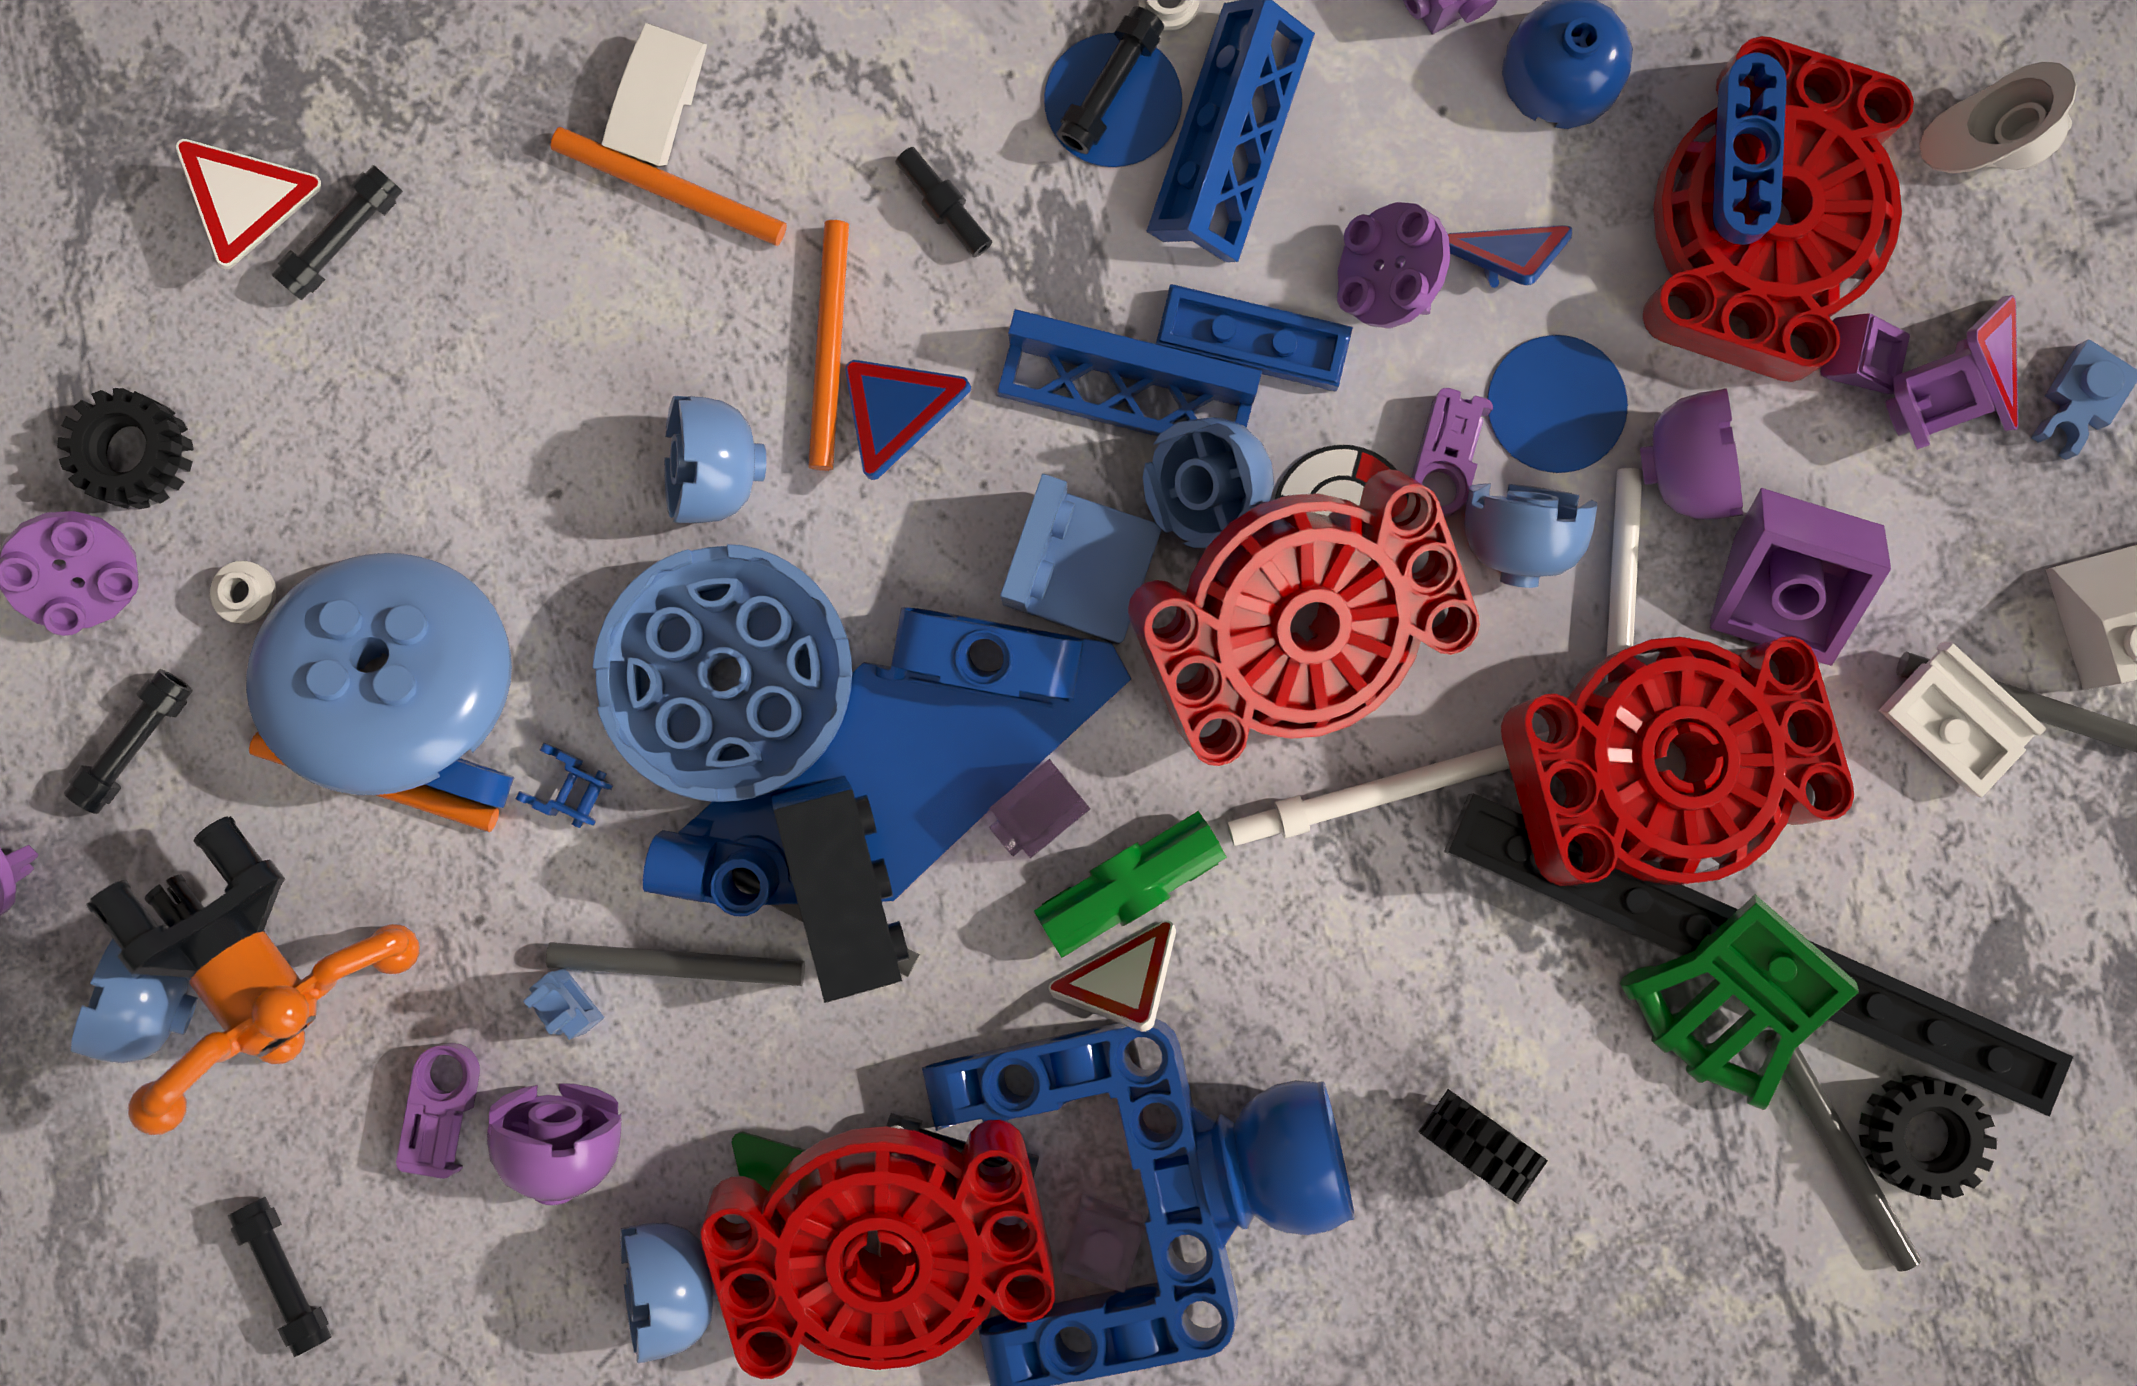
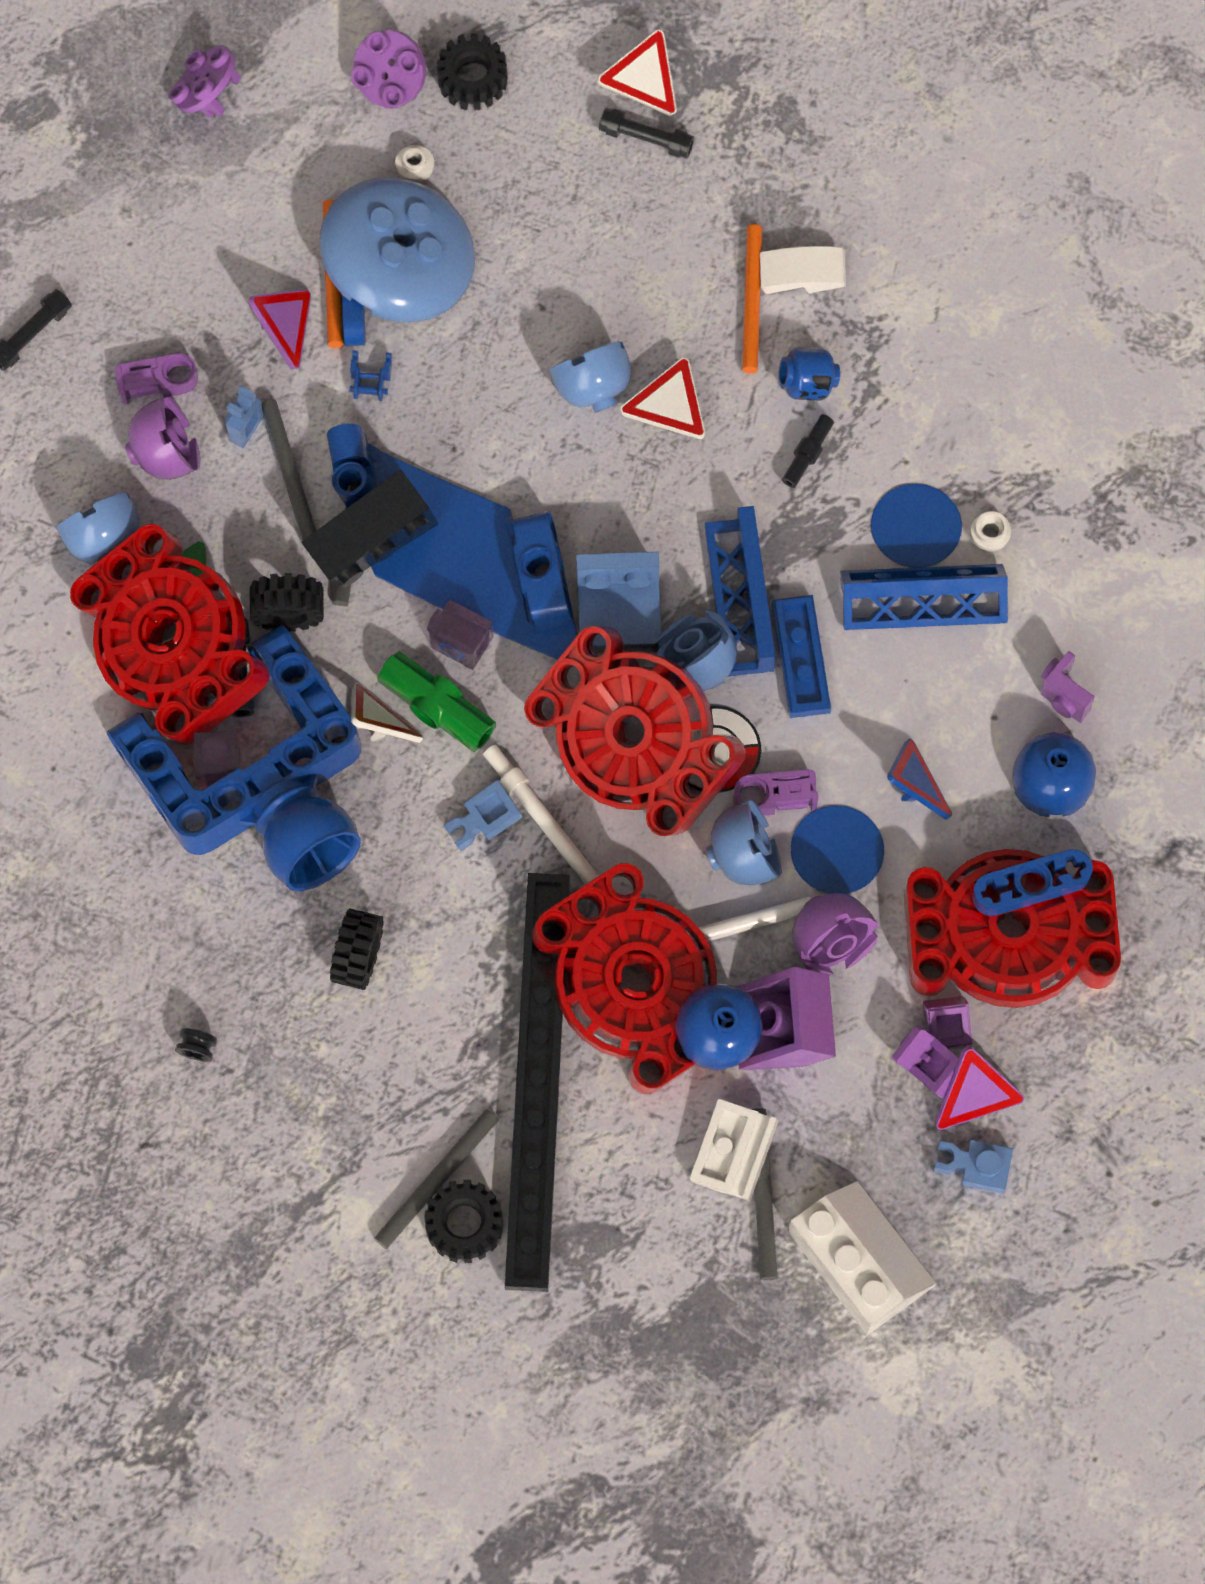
camera: 65 degrees right, 15 degrees down
(95, 785) = (271, 130): black bar -> none
(130, 1014) = (159, 194): medium blue cylinder -> none
(230, 966) = (201, 234): wheel -> none
(427, 885) = (285, 321): none -> piece
(660, 659) = (462, 396): medium blue brick -> none
(792, 367) = (669, 402): none -> piece
(827, 151) = (808, 374): none -> blue head
(828, 345) = (709, 416): orange bar -> none
(896, 1052) = (286, 601): none -> black tyre
(897, 408) = (668, 467): piece -> none
(1137, 36) = (958, 520): black bar -> none
(1330, 872) = (489, 812): none -> medium blue plate
(1389, 238) = (875, 711): medium lavender plate -> none
(1769, 971) = (524, 1080): green plate -> none
(1809, 671) = (707, 1041): none -> blue cylinder
(2006, 124) = (1125, 1045): white piece -> none

